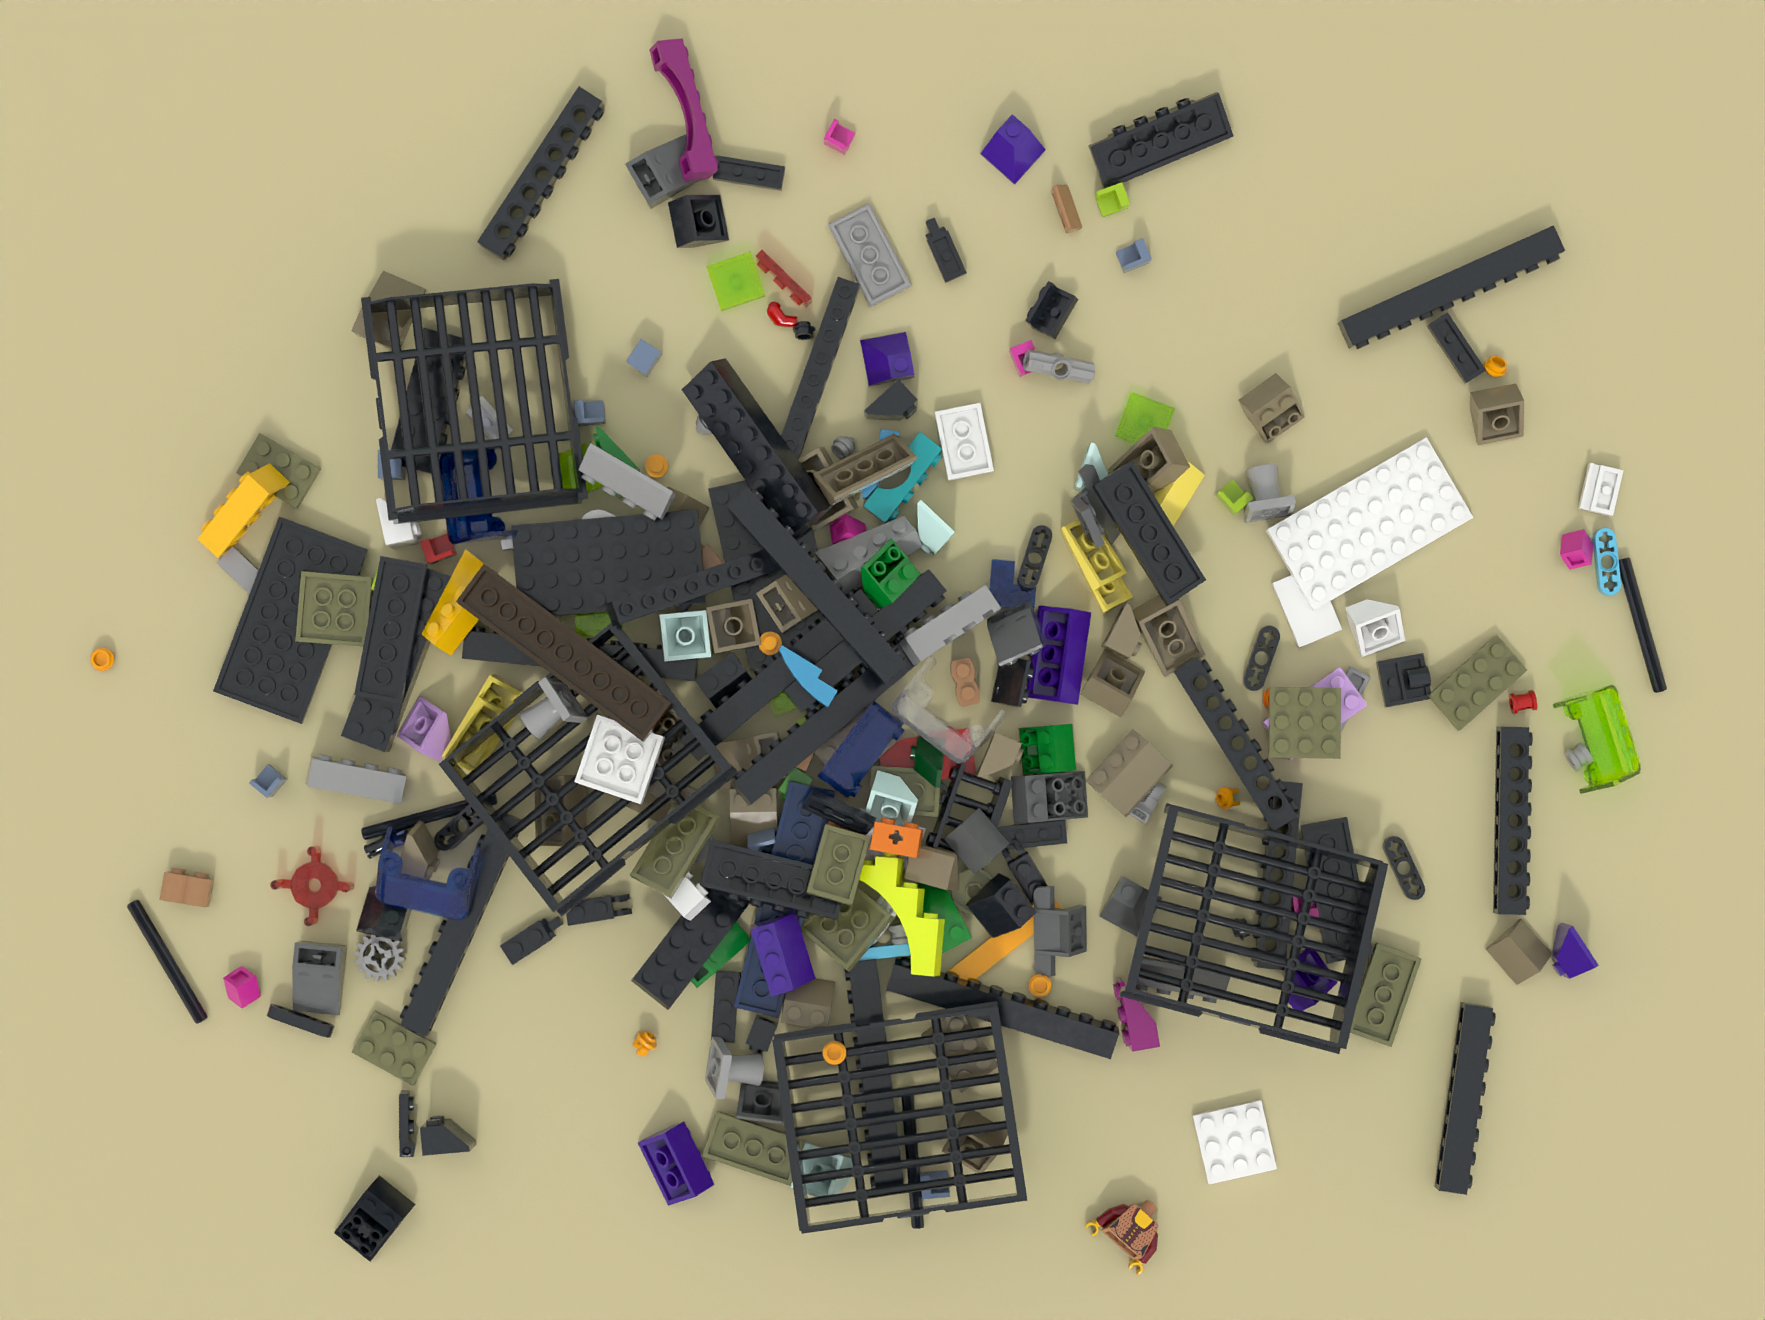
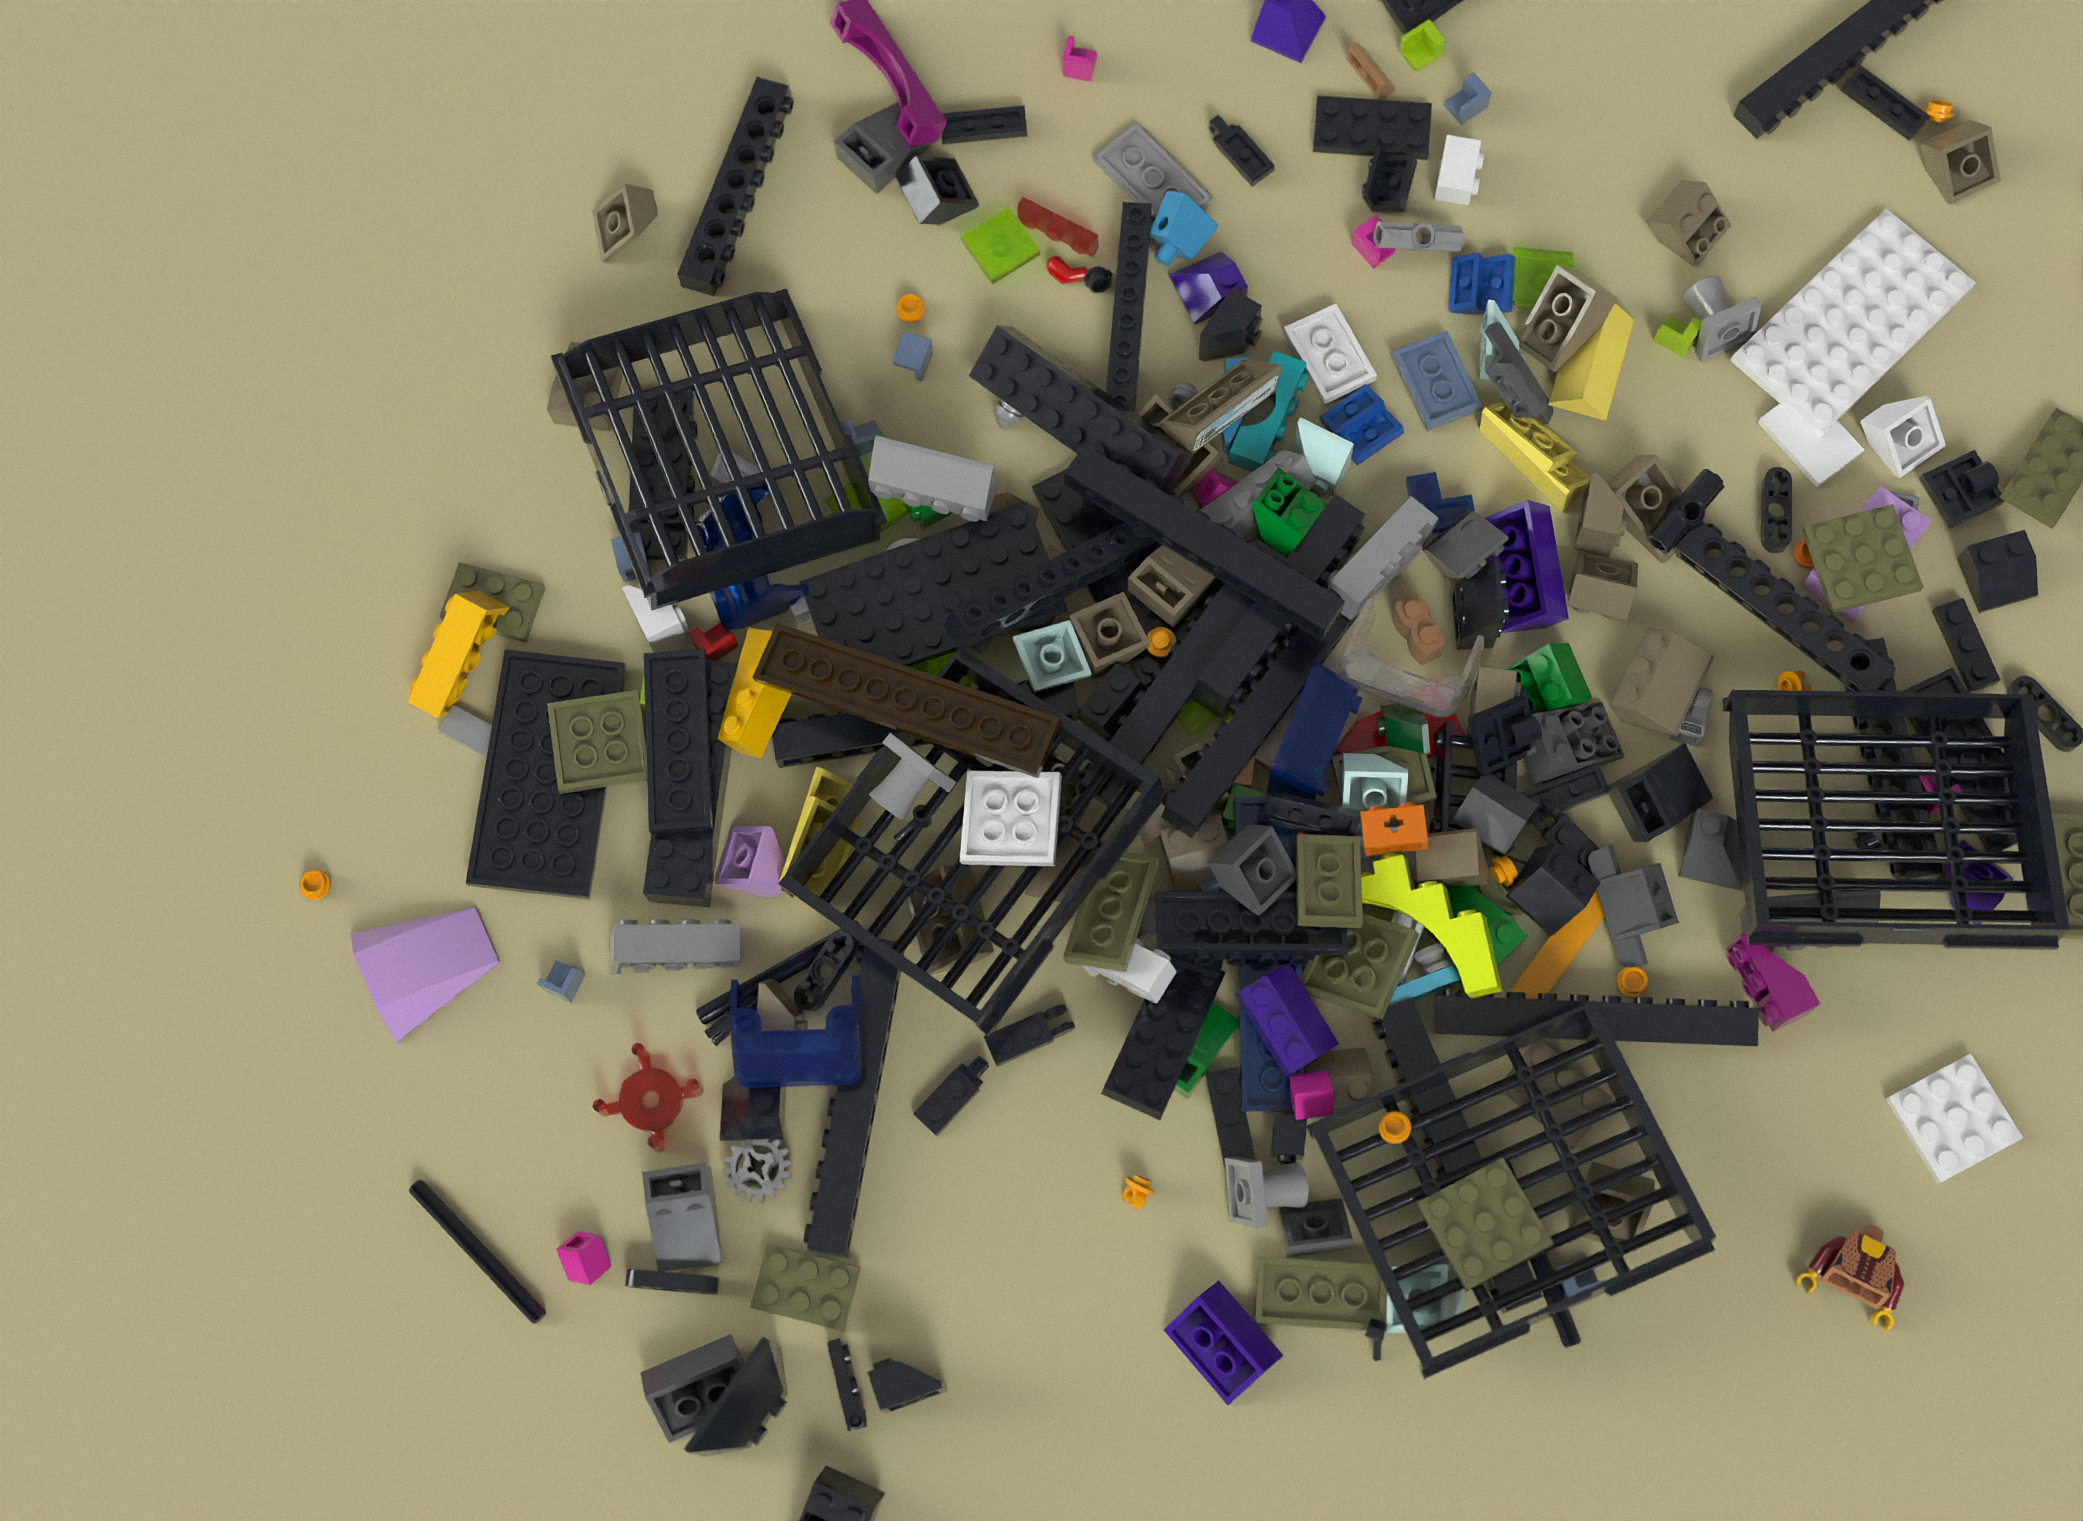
camera: 10 degrees left, 15 degrees down
(168, 740) = (422, 965): none -> lavender wedge
(186, 888) = (483, 1146): medium nougat brick -> none
(303, 1099) = (690, 1385): none -> dark grey slope
(332, 1125) = (745, 1405): none -> black slope
(446, 180) = (623, 218): none -> dark tan slope
(548, 741) = (915, 822): none -> black hand
(653, 315) = (910, 308): none -> light orange plate
(782, 1185) = (1376, 1331): none -> black hand
(784, 1012) = (1311, 1095): none -> dark pink panel
(786, 841) = (1254, 867): none -> dark grey slope
(807, 676) = (1221, 650): dark azure slope -> none
(875, 1138) = (1484, 1224): none -> olive plate
(876, 310) = (1180, 228): none -> dark azure torso
(969, 884) = (1503, 870): none -> light orange plate
(972, 505) = (1364, 422): none -> blue slope
(997, 788) = (1504, 734): none -> black plate
(1039, 486) = (1437, 380): none -> sand blue plate
(1043, 553) = (1453, 472): black beam -> none
(1053, 258) = (1361, 125): none -> black plate
(1097, 415) = (1479, 280): none -> blue slope
(1102, 856) = (1659, 794): none -> black slope
(1107, 315) = (1458, 170): none -> white brick
(1149, 533) = (1593, 385): black plate -> none
(1200, 638) = (1696, 499): none -> black piece
(1365, 800) = (1966, 645): none -> black plate
(1408, 752) = (2000, 571): none -> black slope

